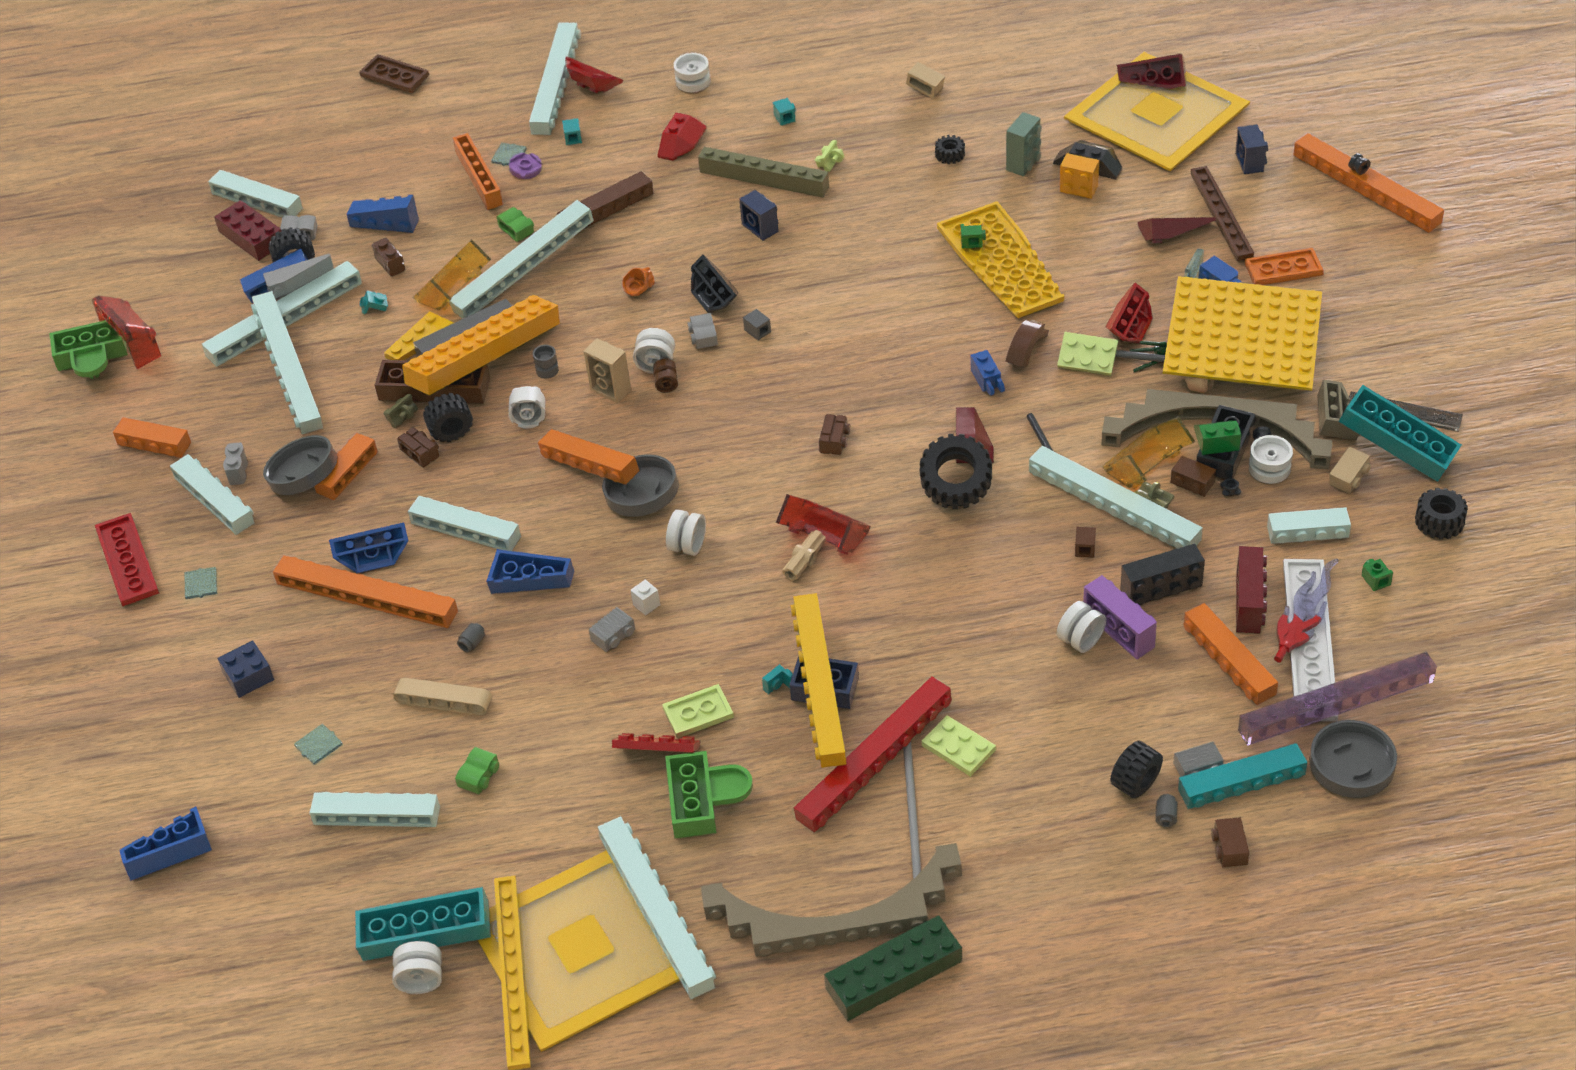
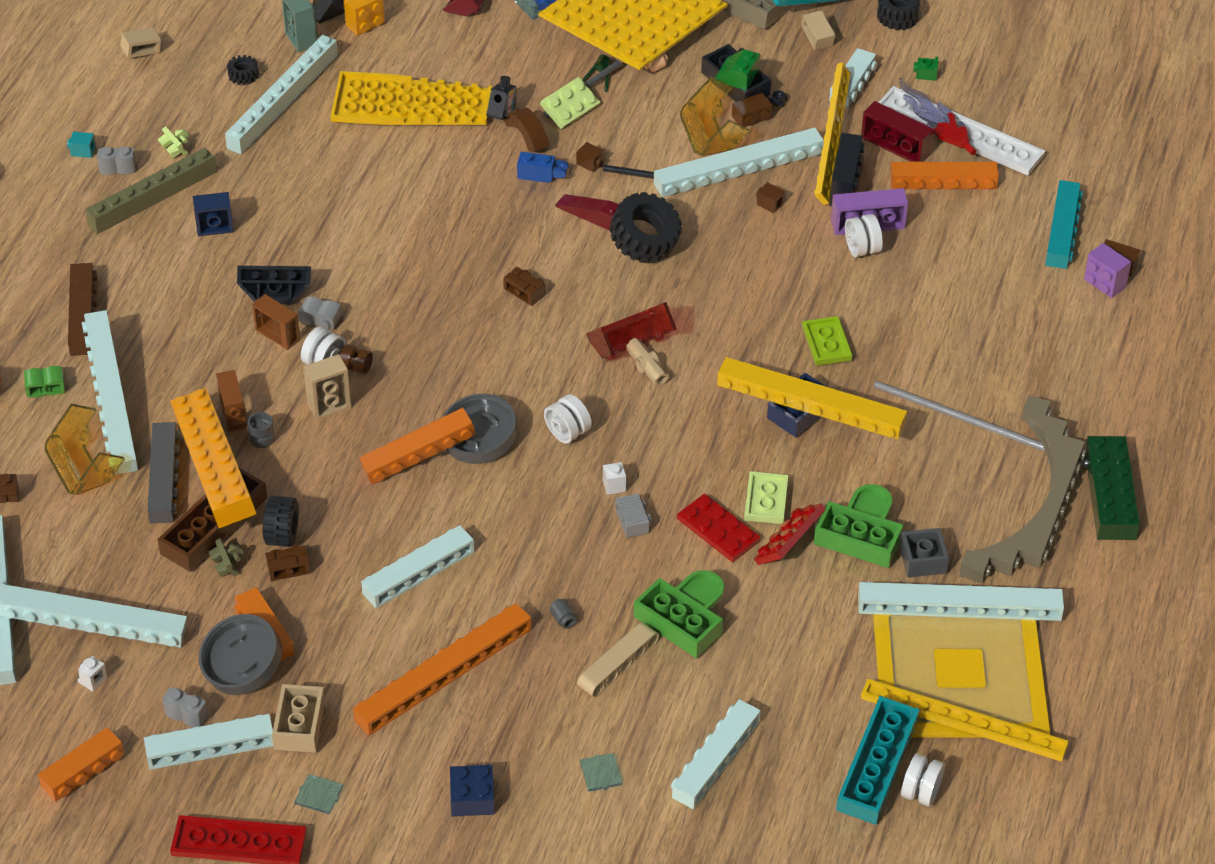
camera: 65 degrees left, 0 degrees up
(239, 393) = (90, 668): none -> white brick
(258, 530) = (298, 718): none -> tan brick
(370, 548) = (395, 639): blue wedge -> none
(373, 300) = (47, 525): teal bracket -> none
(404, 346) = (130, 510): yellow wing -> none
(477, 770) = (724, 666): bright green brick -> none
(514, 708) = (684, 611): none -> bright green brick
(527, 406) = (312, 463): white brick -> none
(527, 572) = (519, 543): blue wedge -> none
(567, 313) = (231, 400): none -> dark orange window
(638, 281) = (214, 328): orange hair -> none
(642, 695) = (718, 527): none -> red plate
(666, 307) = (284, 334): none -> dark orange window
(680, 136) = (41, 222): red wedge -> none
(700, 852) = (924, 552): none -> dark grey brick
(757, 324) = (345, 276): dark grey brick -> none
(775, 678) = (771, 433): teal bracket -> none
(780, 137) = (116, 160): none -> light grey brick
(873, 754) = (888, 391): red brick -> none
(933, 660) = (826, 340): none -> lime plate
(939, 183) = (281, 94): none -> light aqua brick
(958, 745) = (917, 361): yellowish green plate -> none
(972, 236) = (374, 101): green brick -> none
(1030, 399) = (590, 157): none -> reddish brown brick
(1044, 307) = (502, 99): none -> black torso
(1131, 315) = (548, 61): red wedge -> none
(1136, 769) = (1026, 269): black tyre -> none
(1155, 494) = (758, 135): olive hips -> none
(1166, 405) = (665, 90): dark tan arch -> none
(1166, 810) = (1066, 277): dark grey brick -> none
(1193, 836) = (1107, 270): none -> medium lavender brick
(1197, 759) = (1033, 239): light grey brick -> none
(1230, 531) = (832, 133): none -> yellow plate
(1270, 459) = (775, 61): white wheel -> none
(1336, 698) = (1036, 140): brick -> none
(1353, 758) = (1089, 160): dark grey piece -> none

